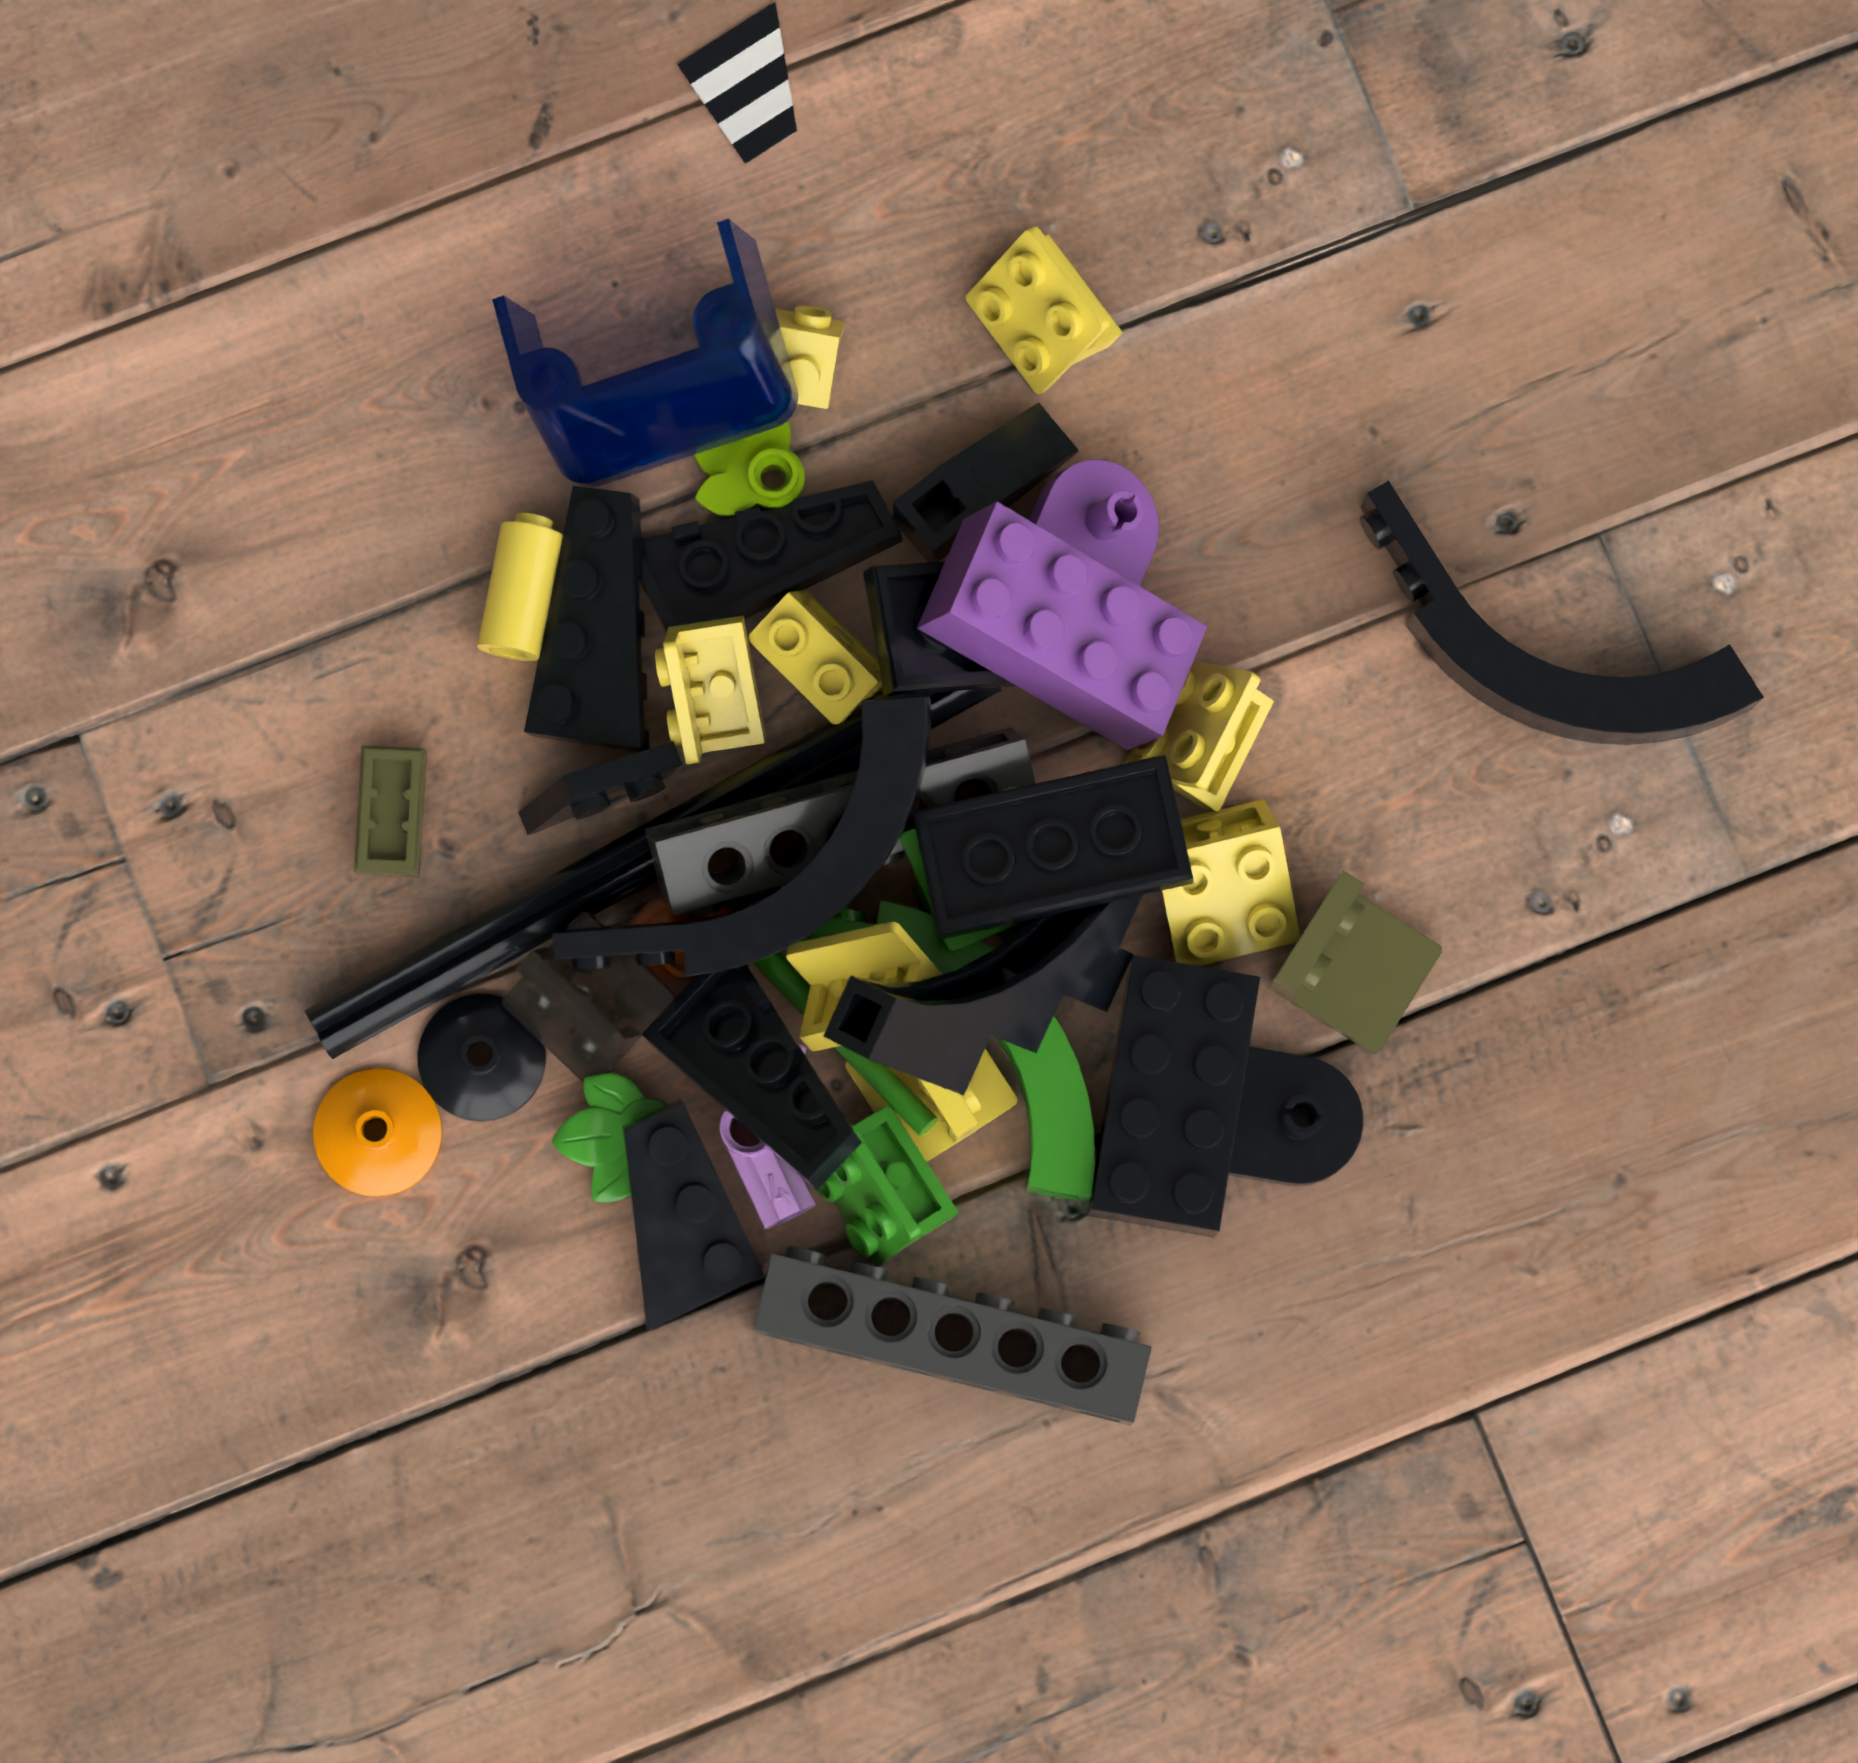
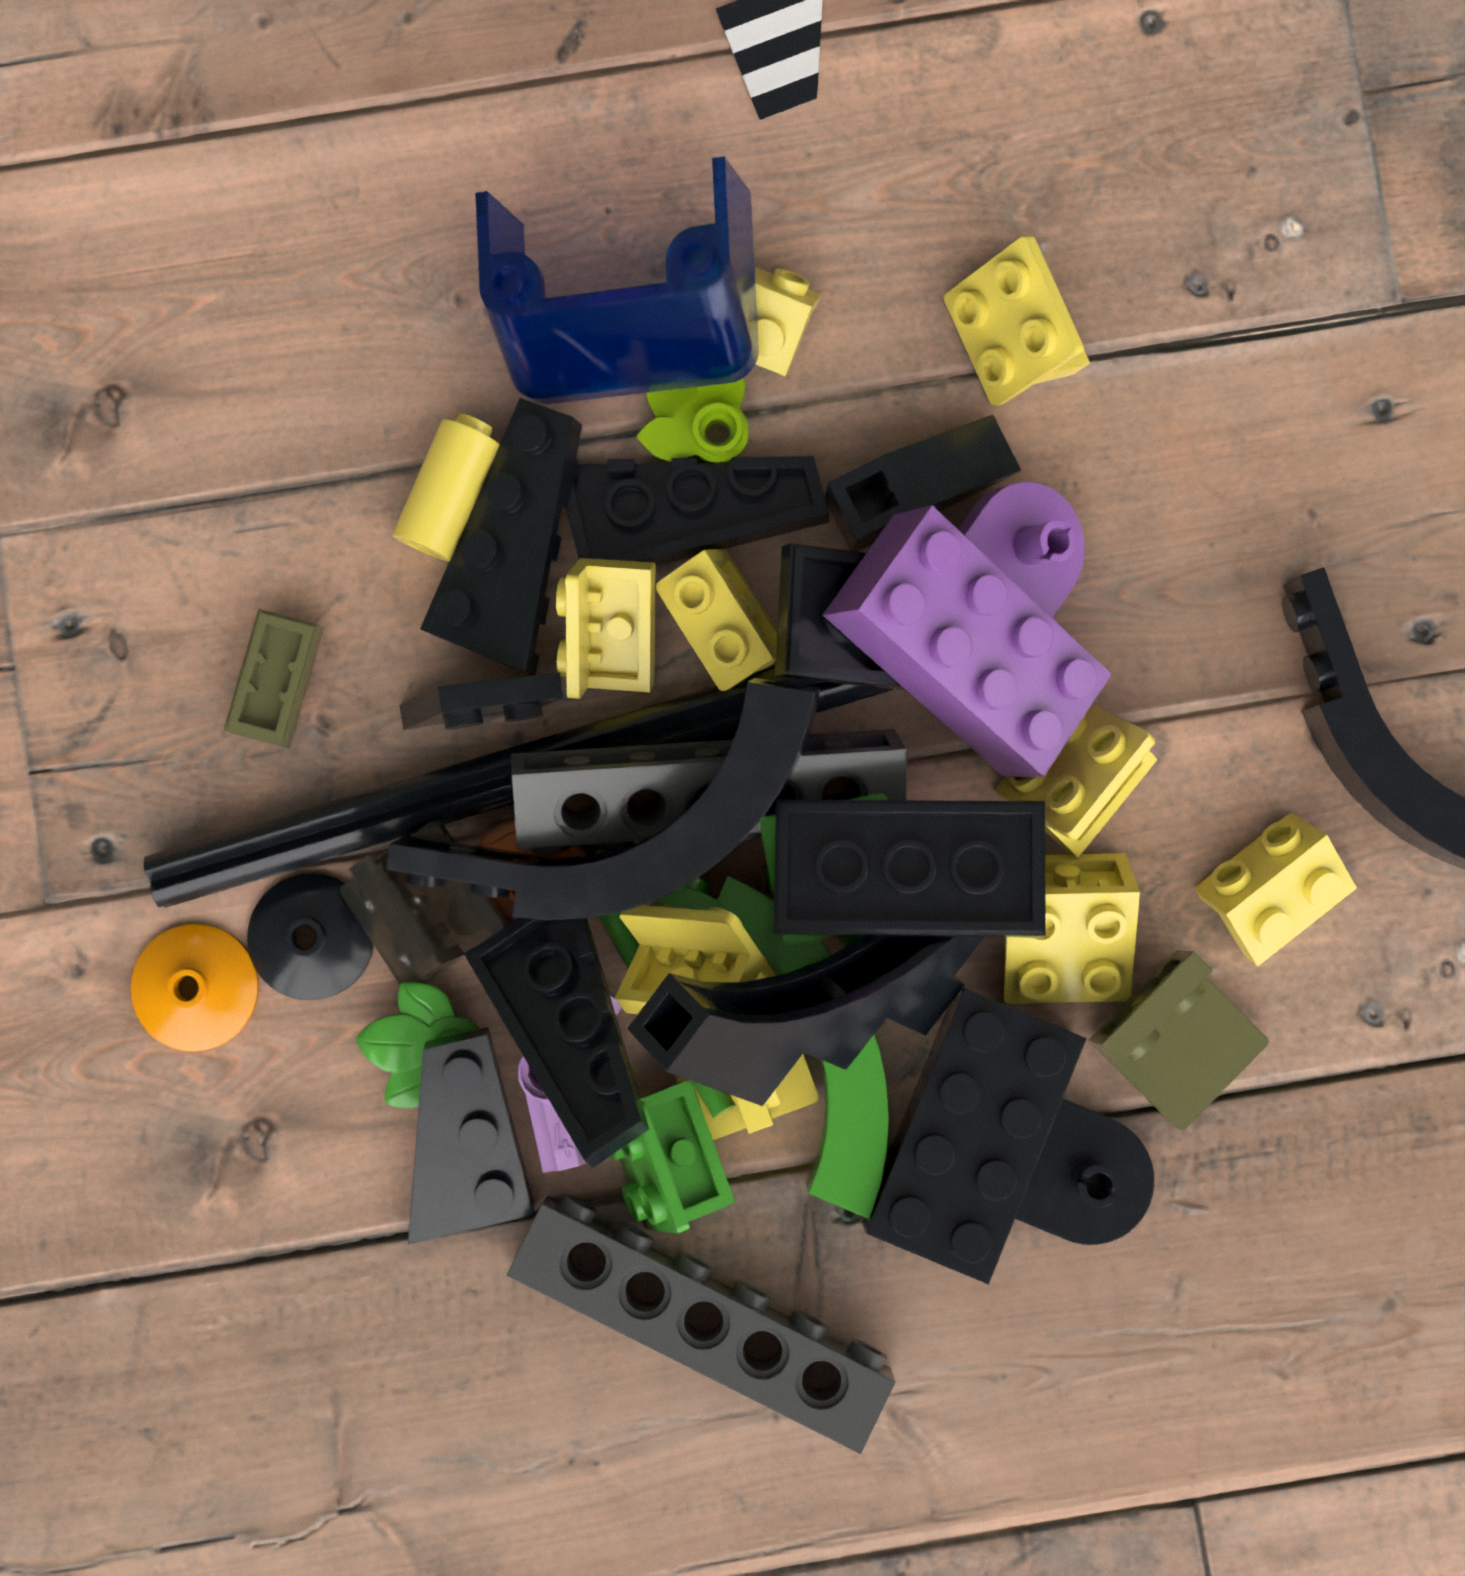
camera: 20 degrees right, 5 degrees up
(1417, 798) = (1276, 886): none -> light yellow bracket

